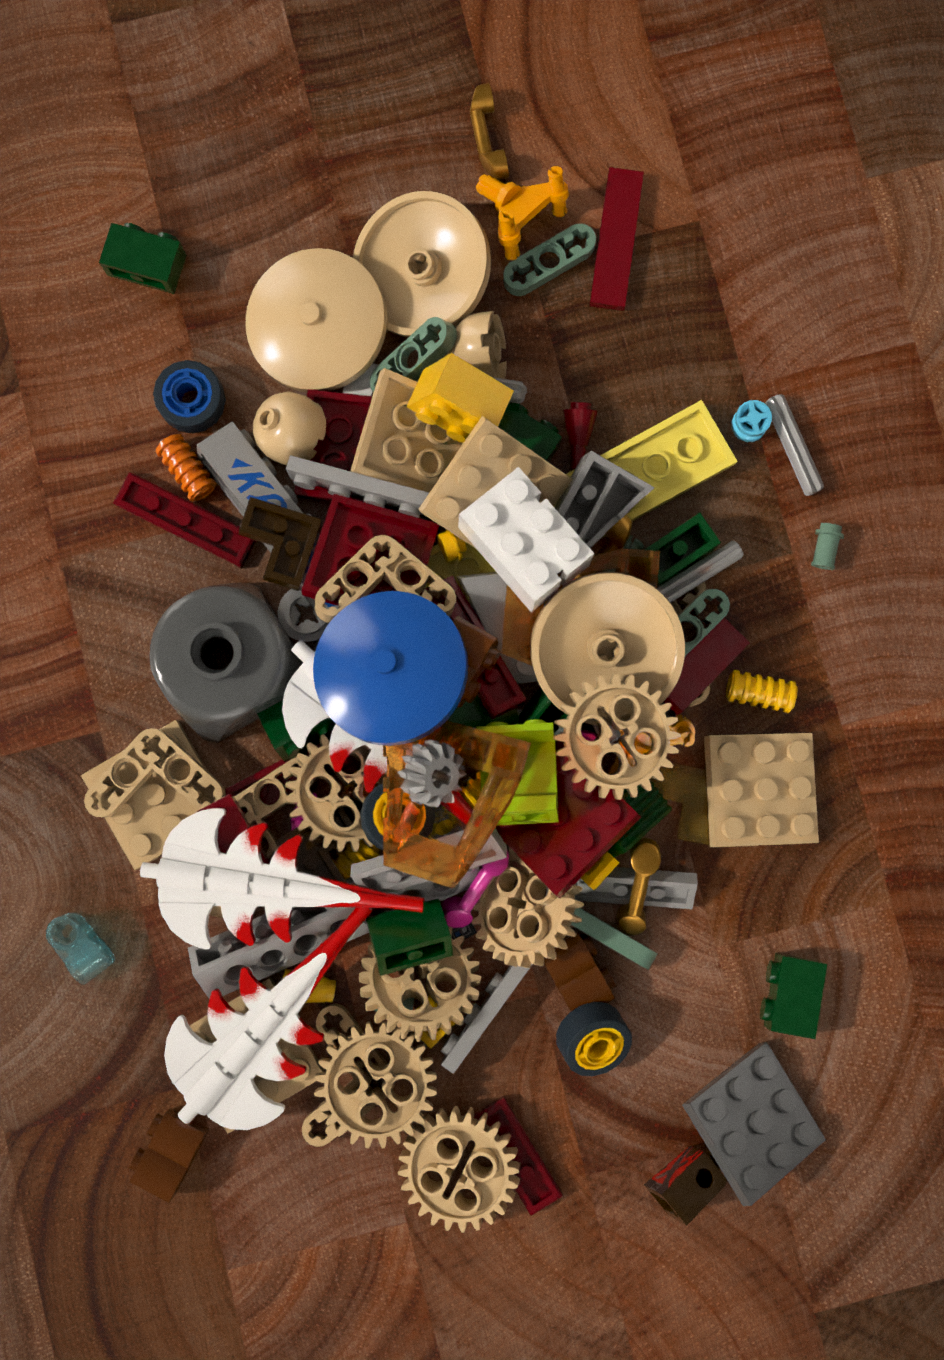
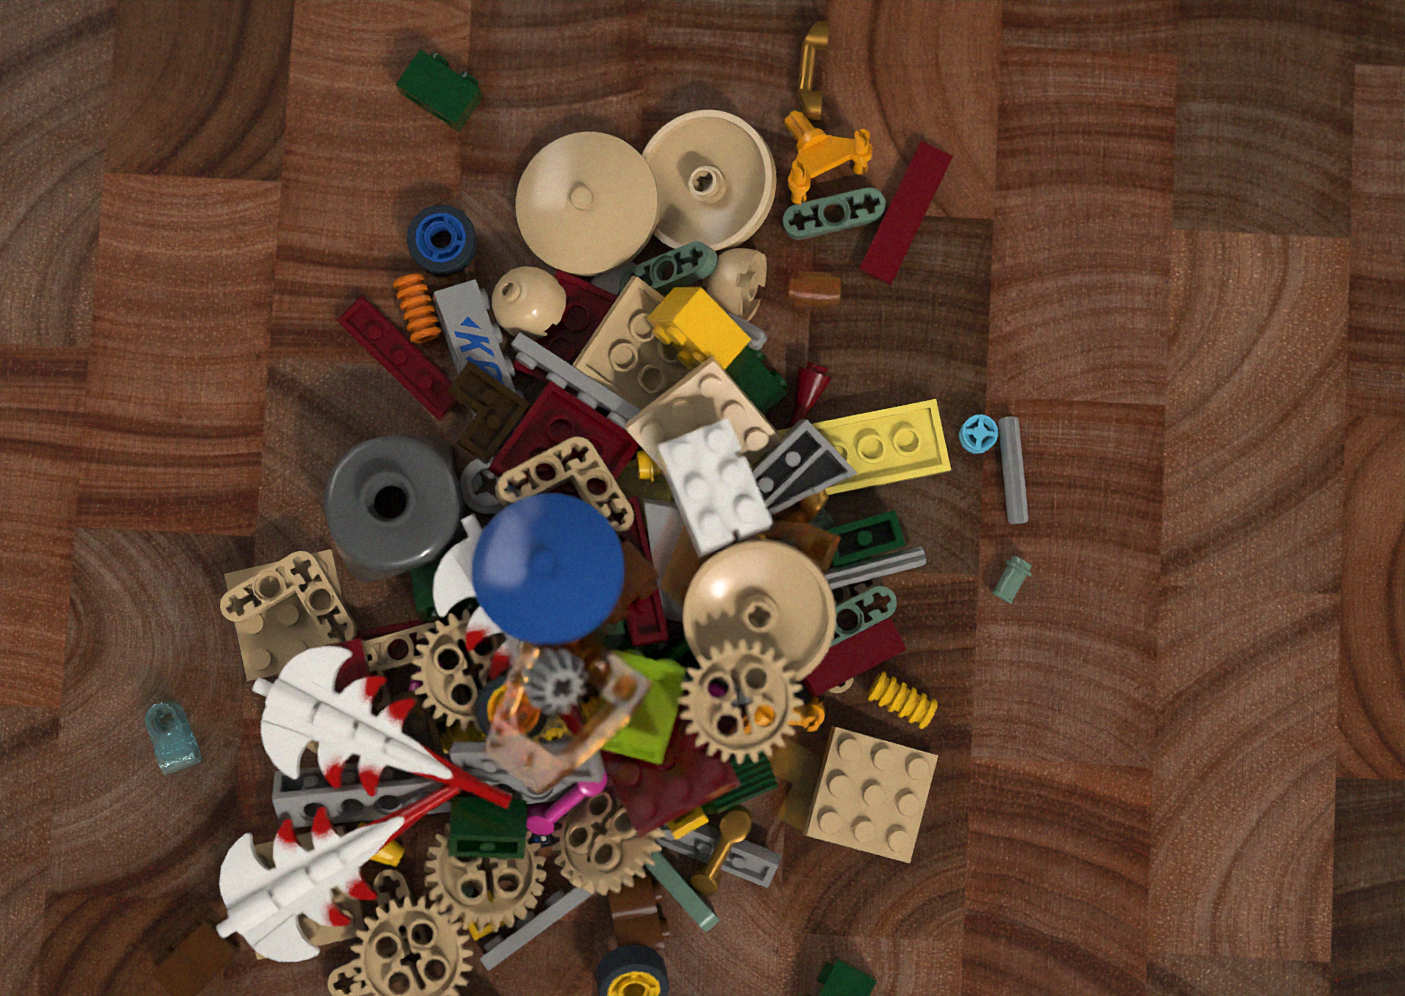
camera: 15 degrees right, 0 degrees up
(555, 334) = (815, 289): none -> clear orange brick

